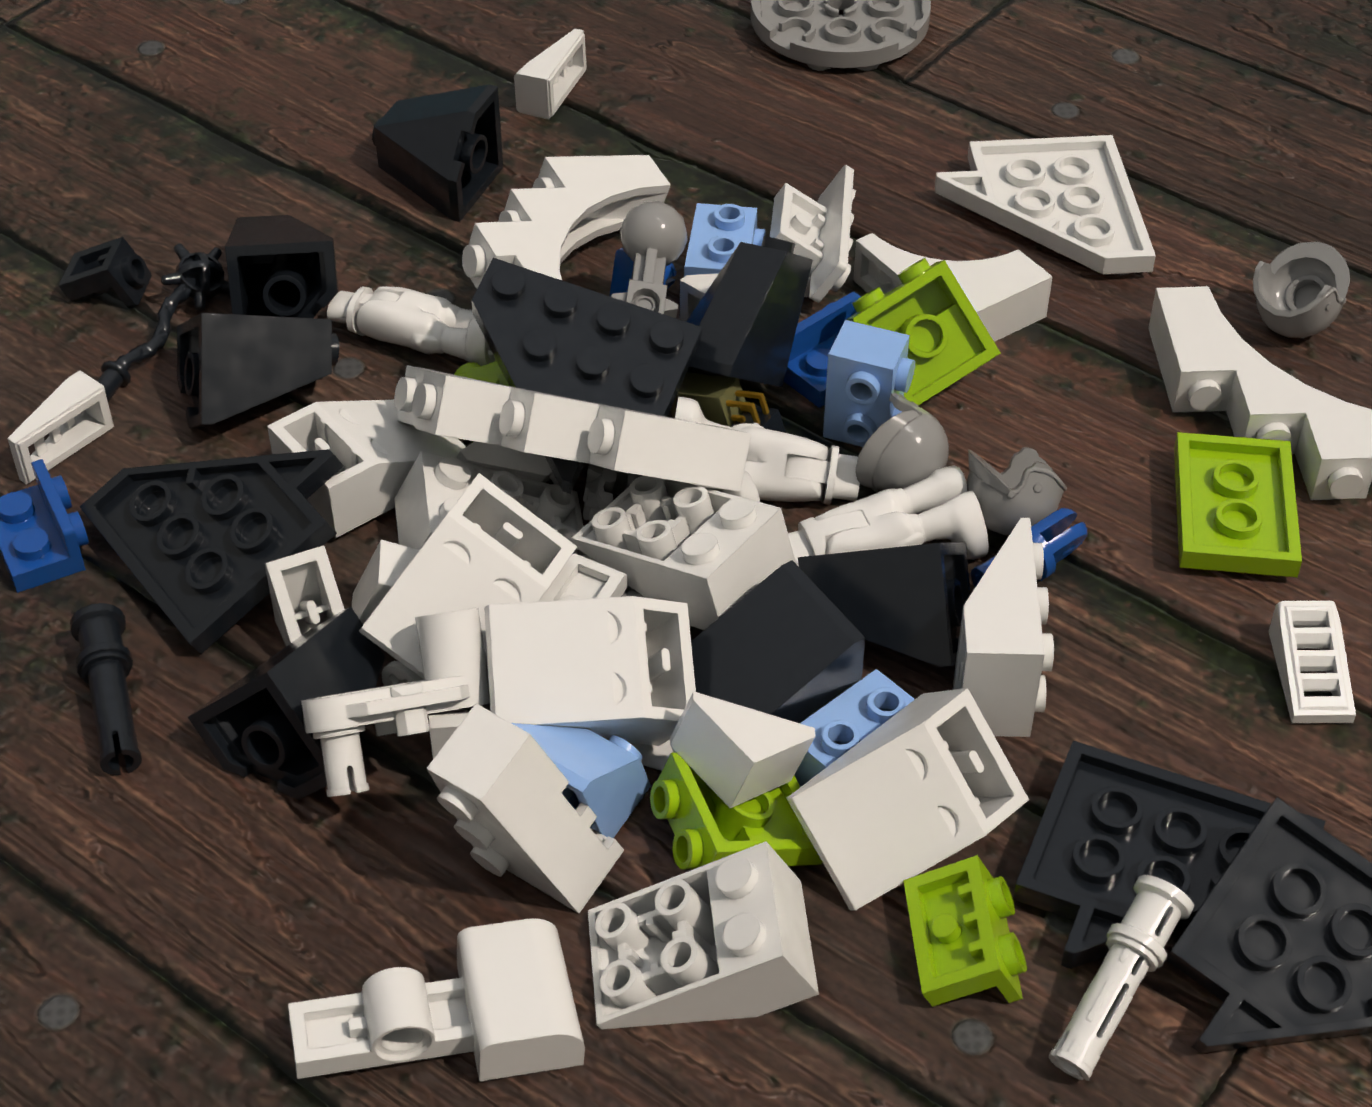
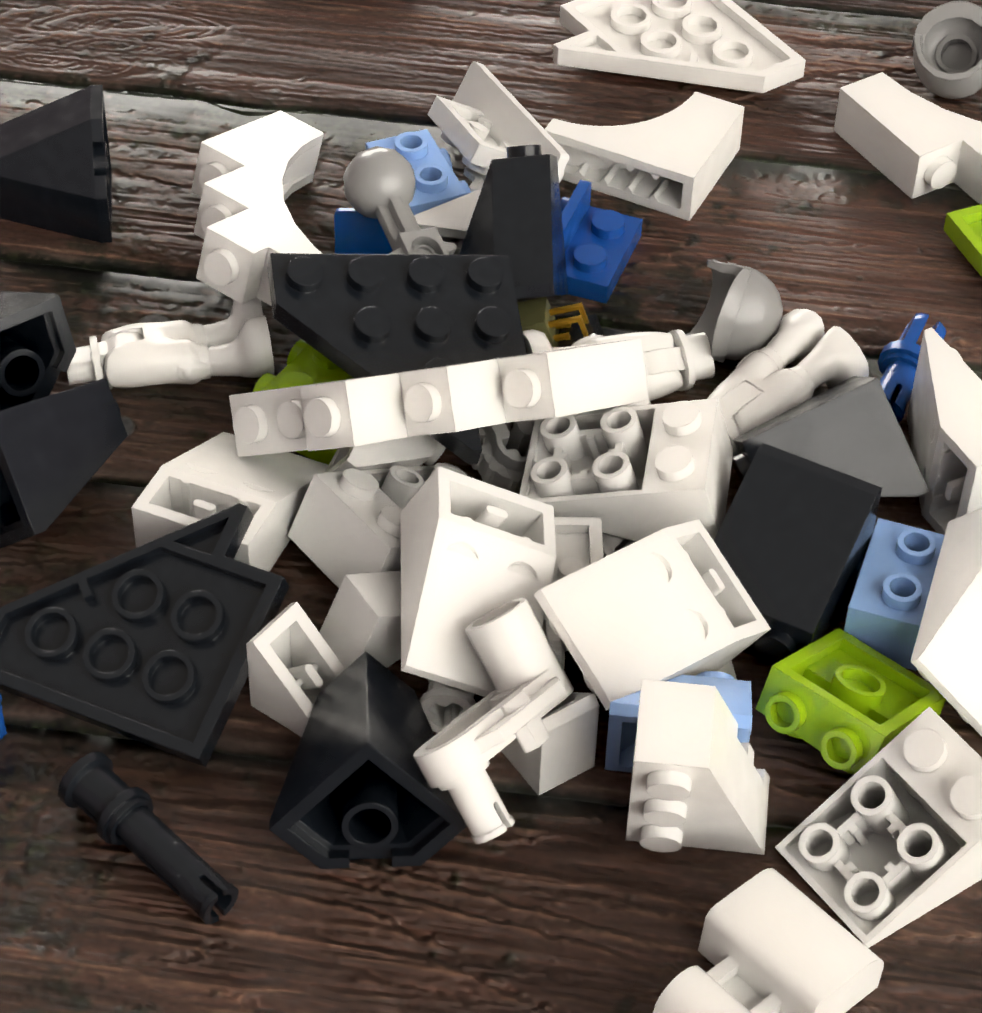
camera: 30 degrees left, 0 degrees up
(551, 76) = (101, 60): white slope -> none
(739, 748) = (827, 634): white slope -> none
(861, 375) = (665, 263): light blue brick -> none
(941, 322) = (675, 195): lime plate -> none
(1021, 491) = (863, 309): light grey helmet -> none

